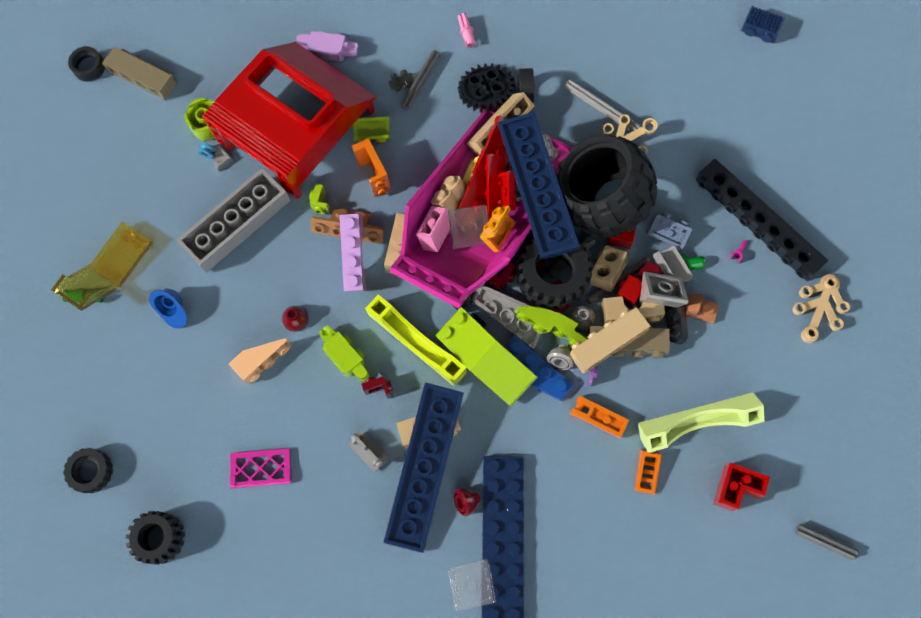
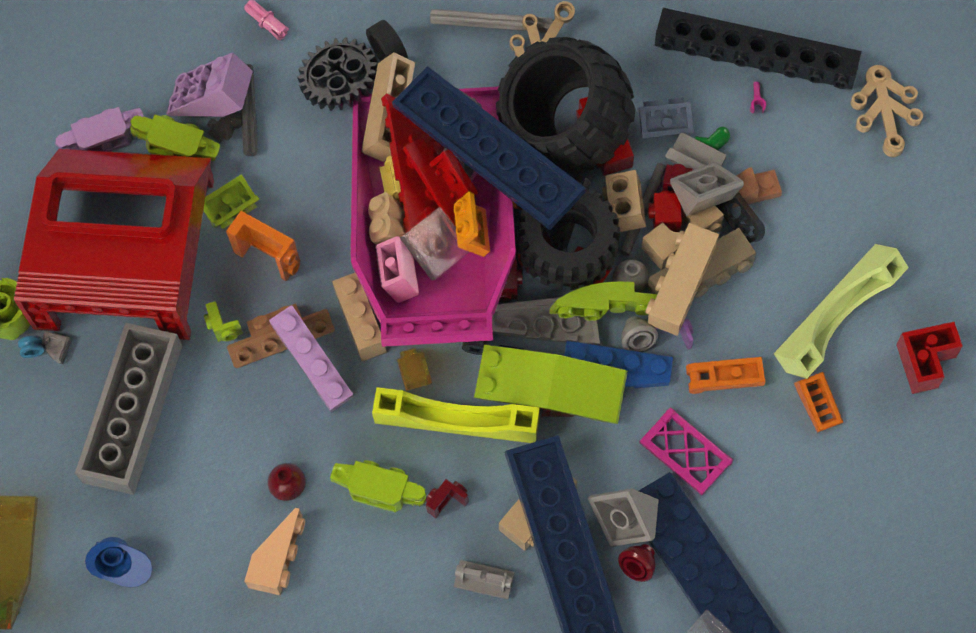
camera: 35 degrees left, 5 degrees down
(361, 70) = (173, 138): none -> lime hinge
(405, 54) = (211, 89): none -> lavender slope
(408, 297) = (413, 369): none -> clear yellow slope
(475, 469) = (626, 516): none -> light grey slope
(532, 462) = (684, 473): none -> dark pink window

